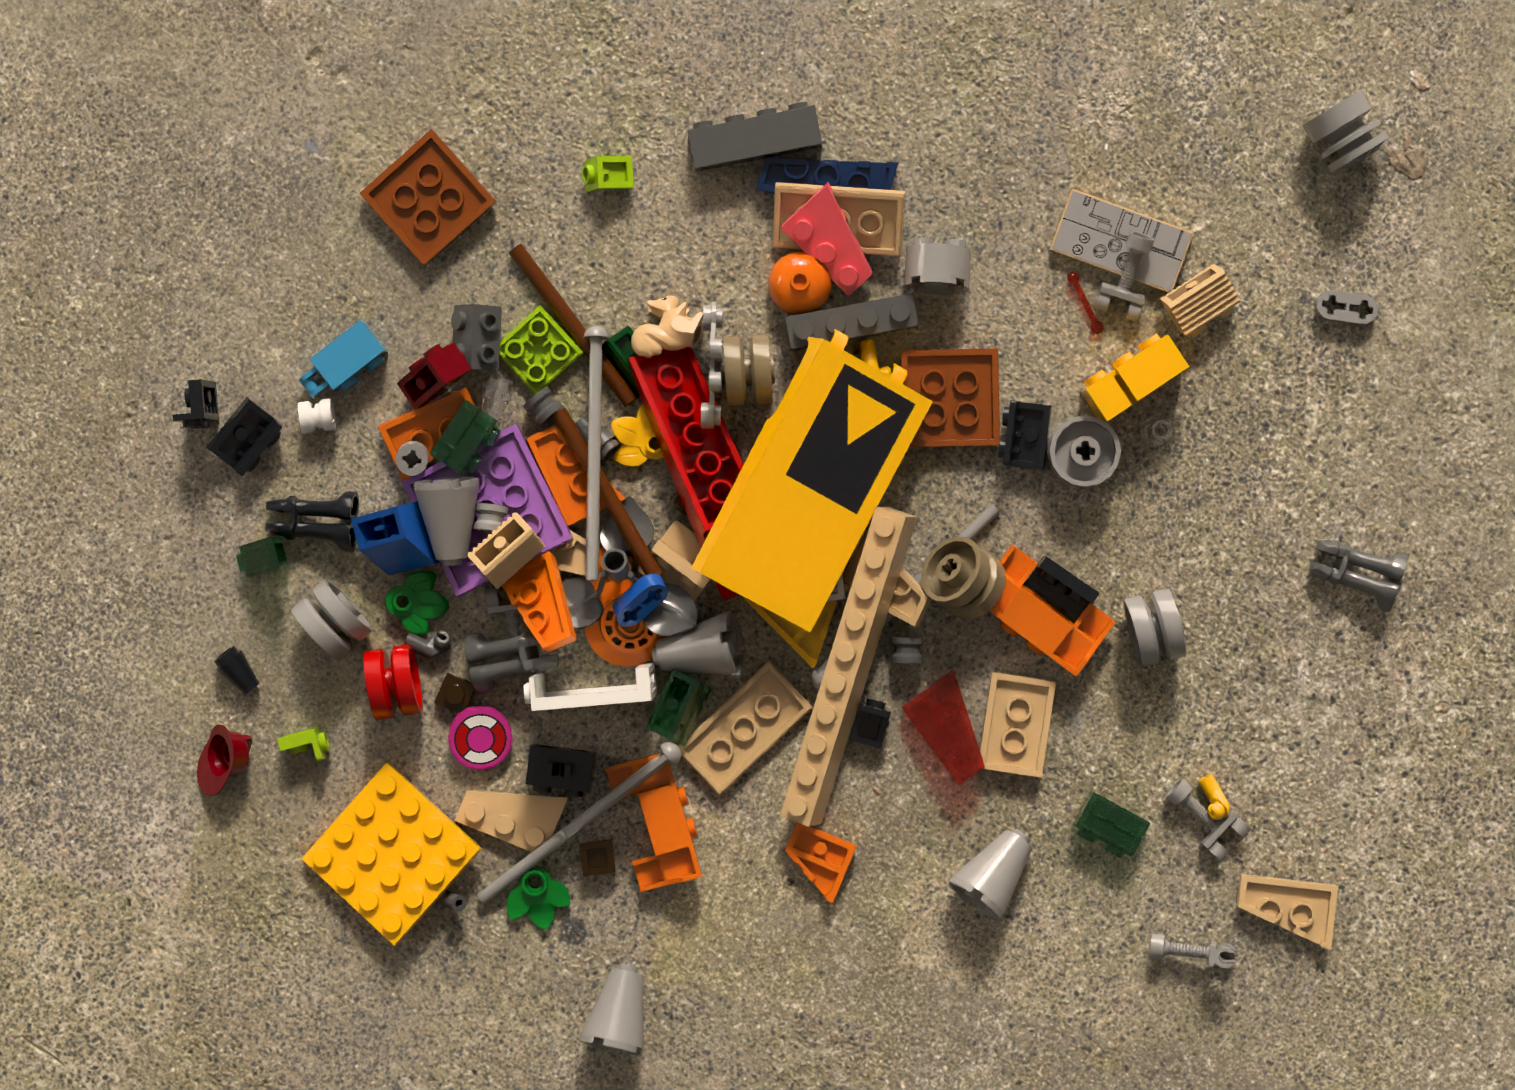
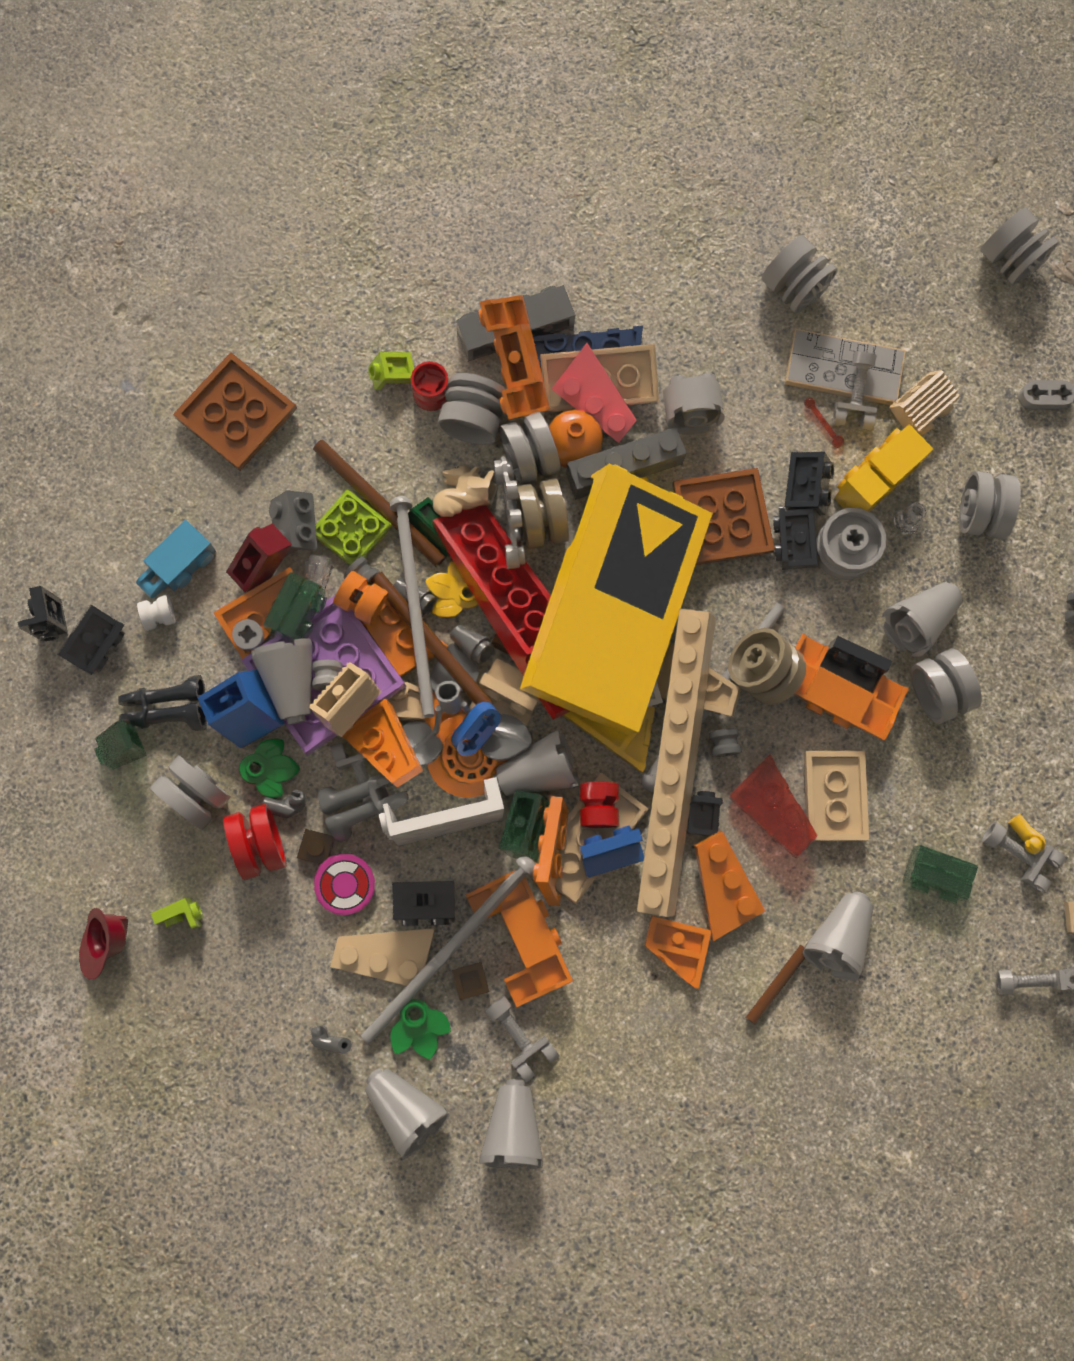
camera: 20 degrees left, 10 degrees down
(236, 669) = (106, 855): black cone -> none
(391, 854) = (274, 1009): yellow plate -> none
(510, 977) = (404, 1111): none -> light grey cone
(547, 444) = (370, 602): none -> orange wheel
(624, 893) = (500, 1011): none -> light grey bar
(647, 202) = (429, 385): none -> red wheel
(651, 501) = (474, 646): none -> dark grey cone
(690, 238) = (471, 409): none -> light grey wheel
(698, 750) = (549, 844): none -> orange wing
(745, 294) = (530, 448): none -> light grey wheel
(749, 190) = (517, 354): none -> orange bracket
(759, 698) = (599, 805): none -> red wheel
(764, 751) = (611, 853): none -> blue bracket
(880, 803) = (726, 888): none -> orange wing
(915, 912) = (776, 986): none -> reddish brown bar
(1053, 372) = (809, 481): none -> black bracket
(1085, 130) = (803, 278): none -> light grey wheel
(1148, 545) = (921, 618): none -> light grey cone
(1245, 432) = (989, 504): none -> light grey wheel

